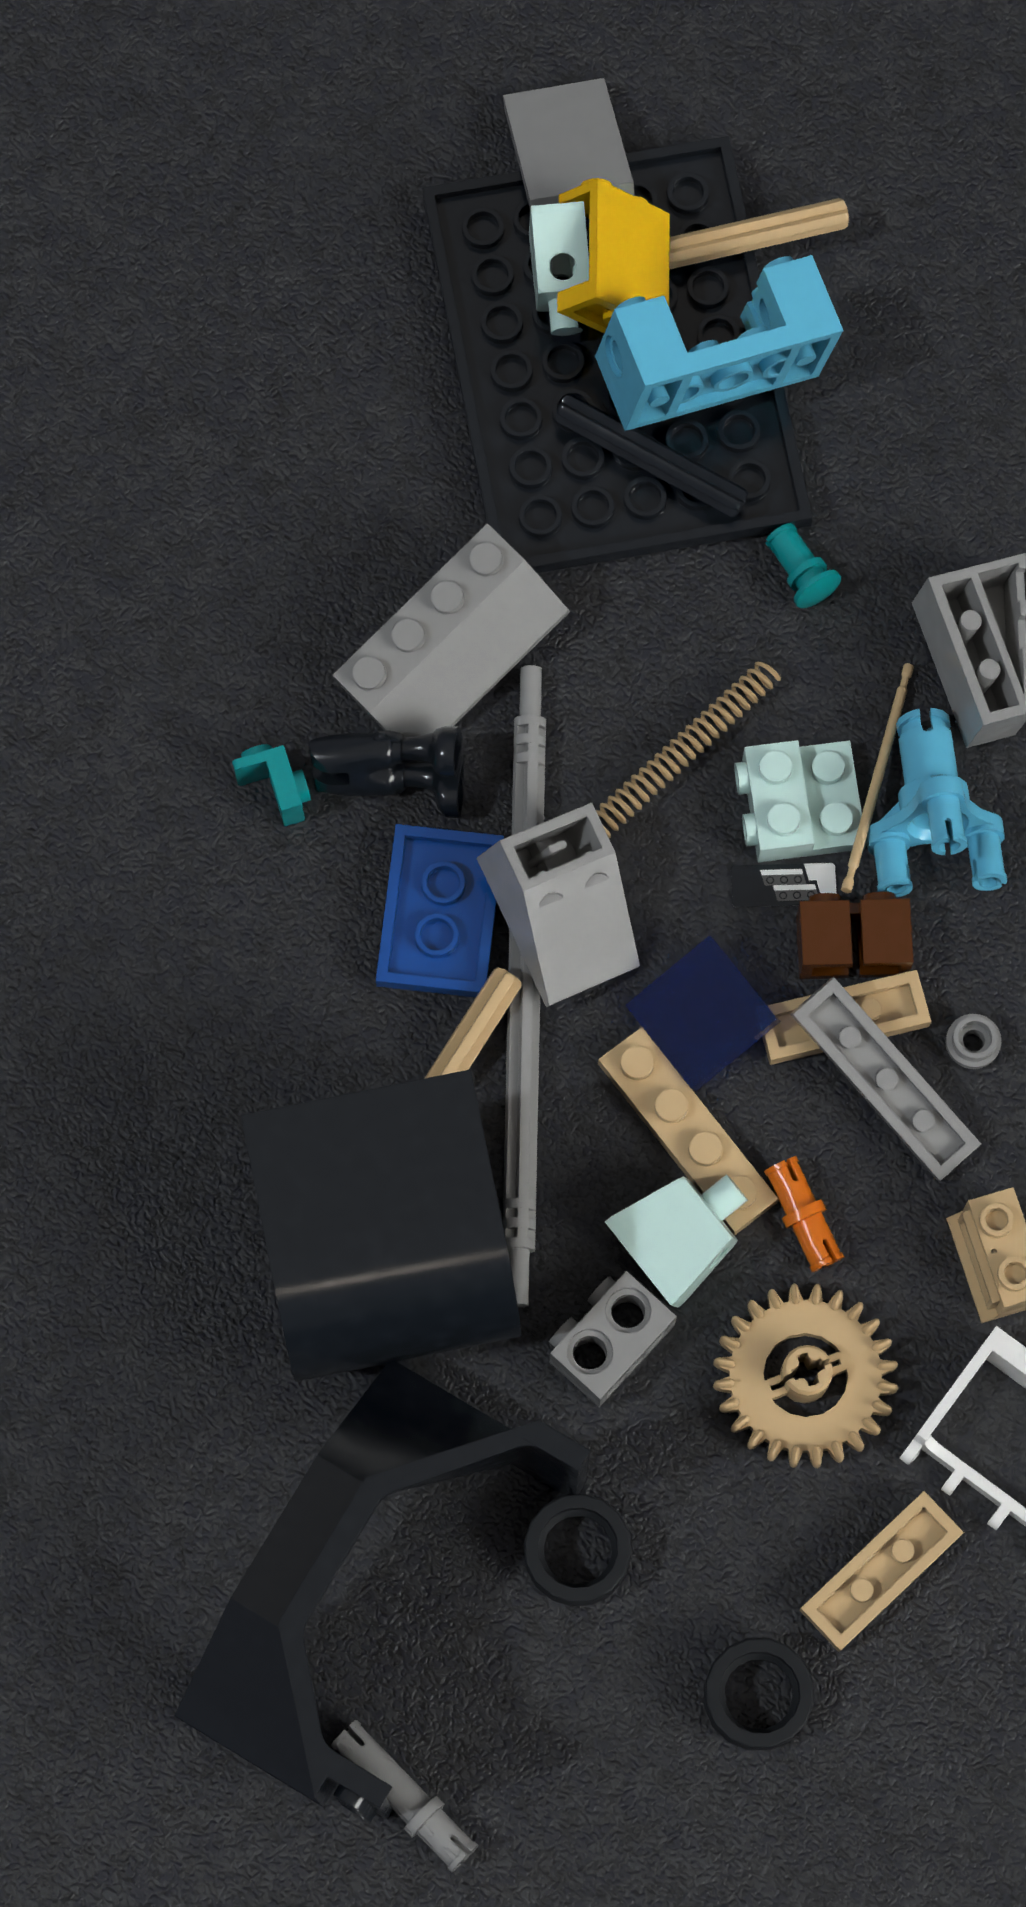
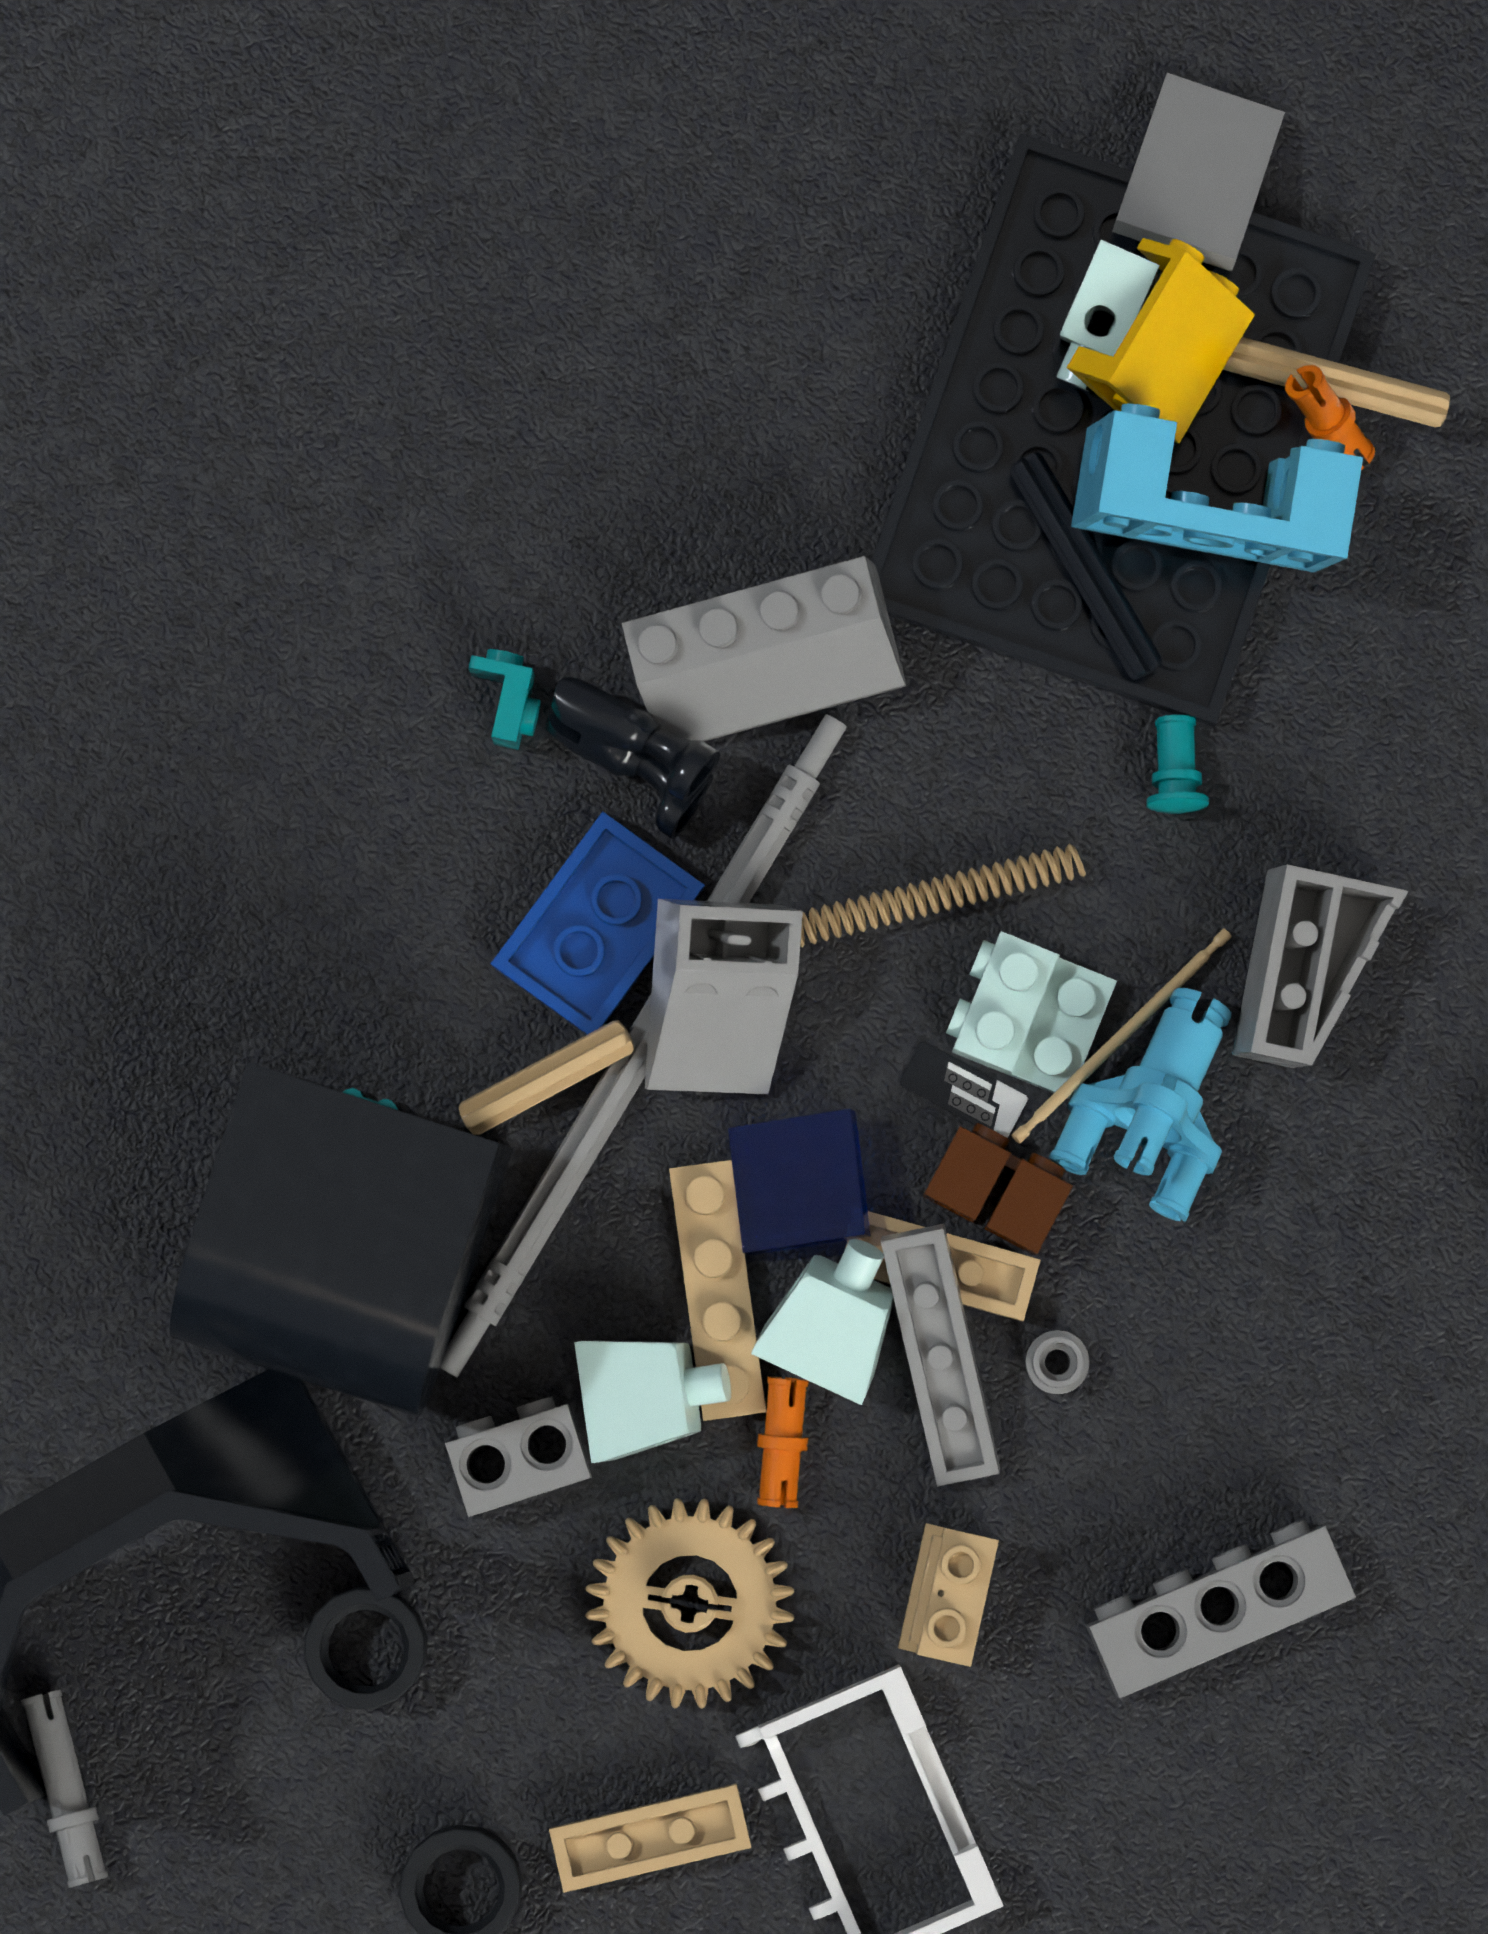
camera: 30 degrees right, 10 degrees up
(751, 247) = (1327, 414): none -> orange pin
(789, 1099) = (832, 1322): none -> light aqua torso

